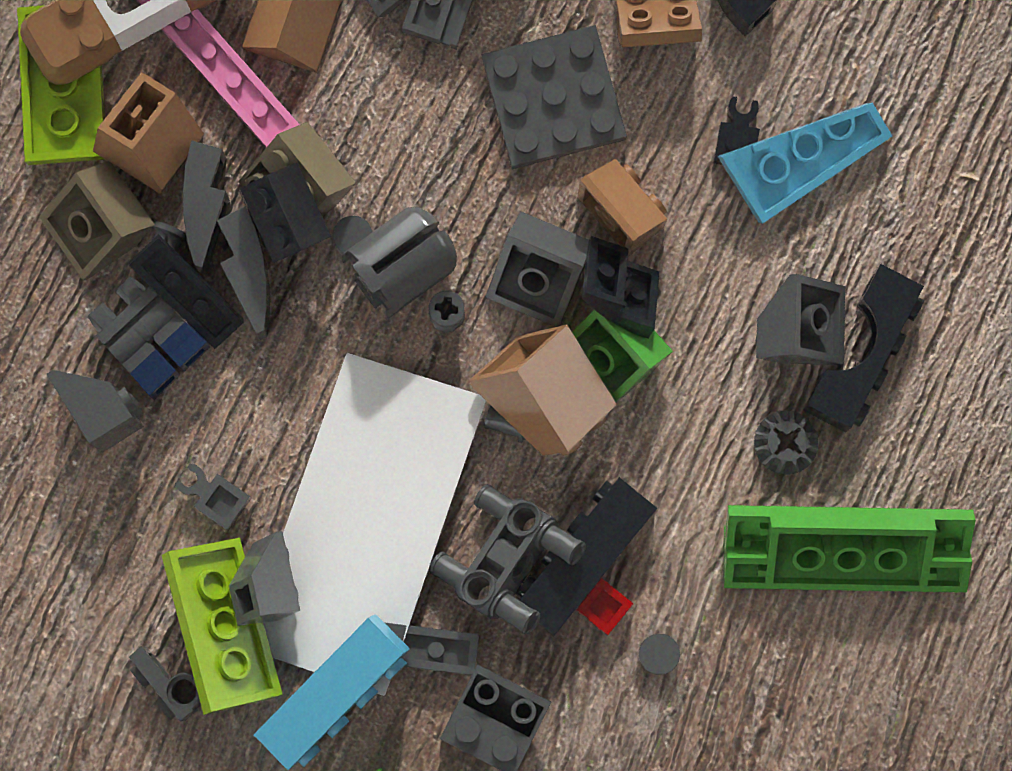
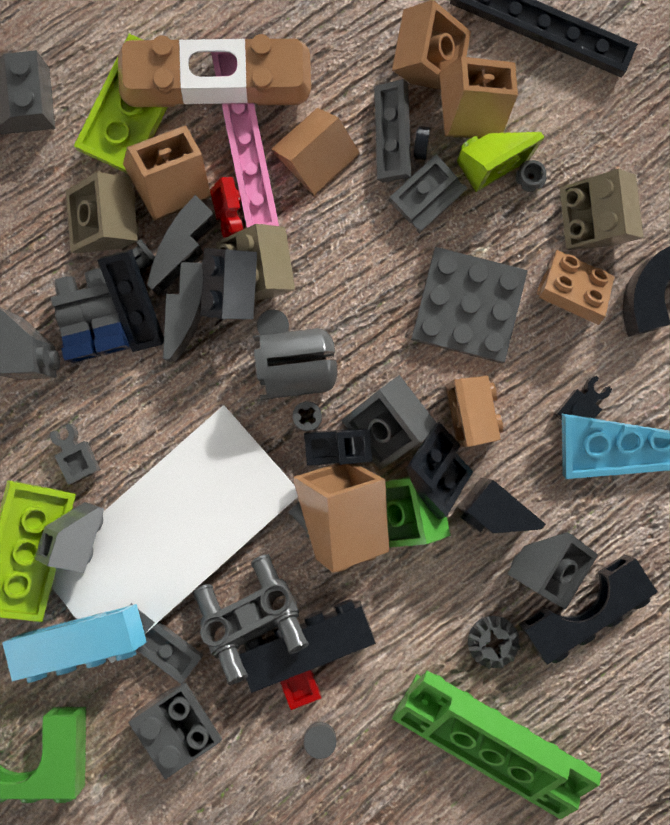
camera: 30 degrees right, 5 degrees up
(228, 133) = (226, 203): none -> red plate
(498, 326) = (338, 446): none -> black slope
(705, 294) = (496, 510): none -> black slope

